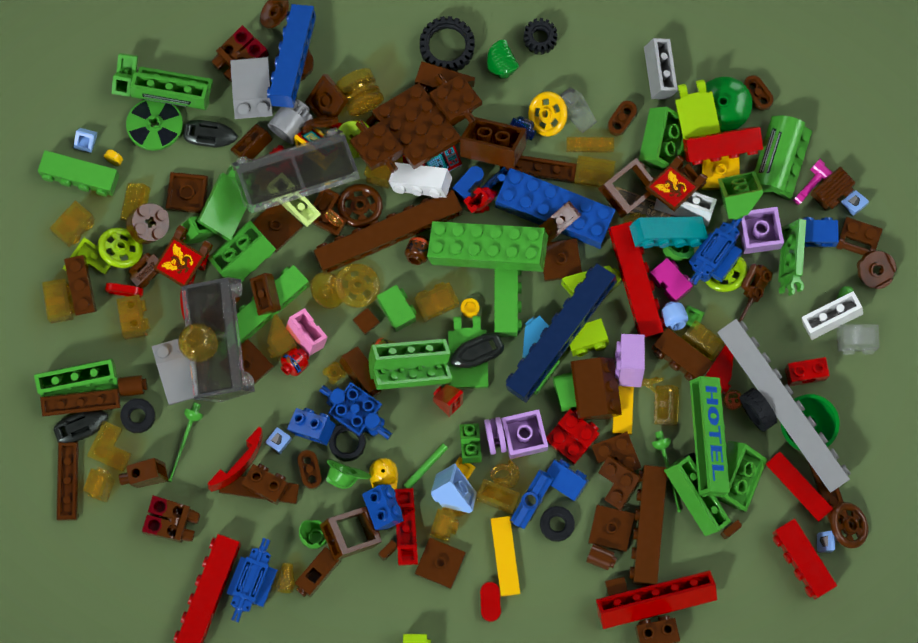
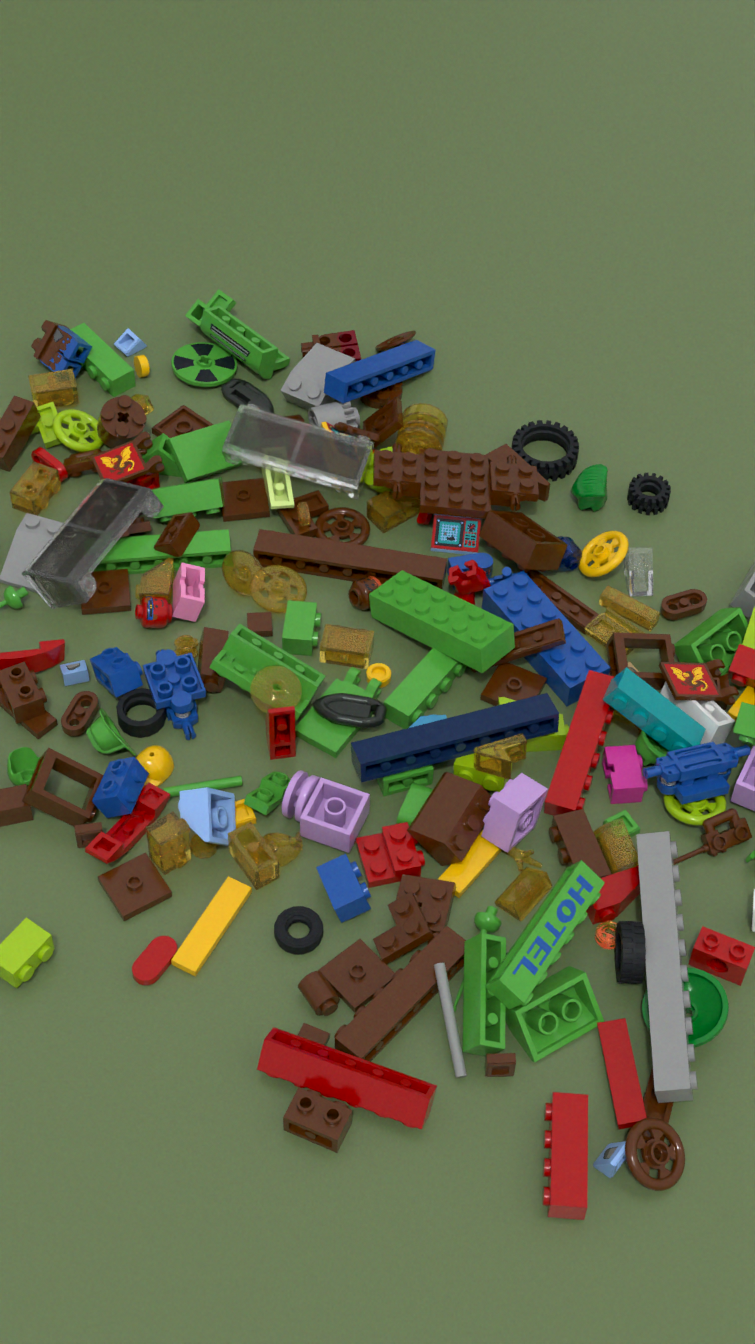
camera: 35 degrees right, 25 degrees down
(49, 187) = (59, 348): none -> hips
(198, 342) = (68, 521): clear yellow cylinder -> none
(419, 375) = (266, 697): none -> clear yellow dish
(421, 181) = (420, 532): white brick -> none
(526, 509) = (298, 873): blue piece -> none
(598, 333) = (497, 756): none -> clear yellow slope
(674, 315) = (601, 805): light blue head -> none
(686, 522) = (450, 1020): none -> light grey bar

